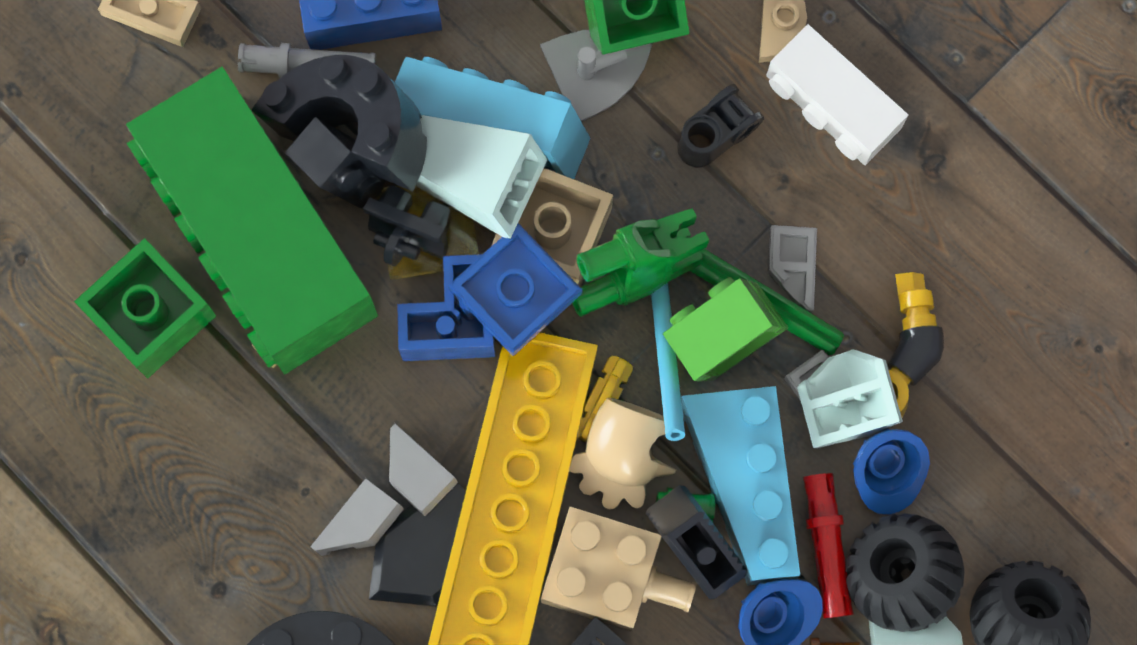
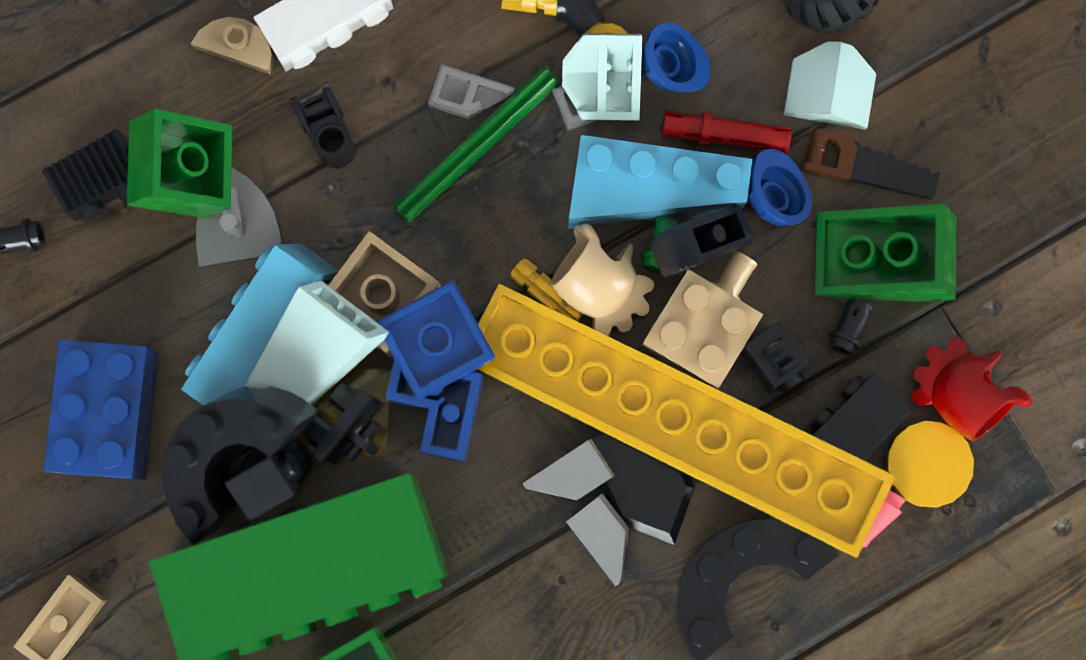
camera: 75 degrees left, 5 degrees up
(284, 58) = (151, 498): light grey pin -> none
(639, 261) = (437, 222): green connector -> none
(667, 366) = (532, 223): medium azure piece -> none
(723, 329) = (520, 165): piece -> none
(887, 550) = (742, 60): black wheel -> none

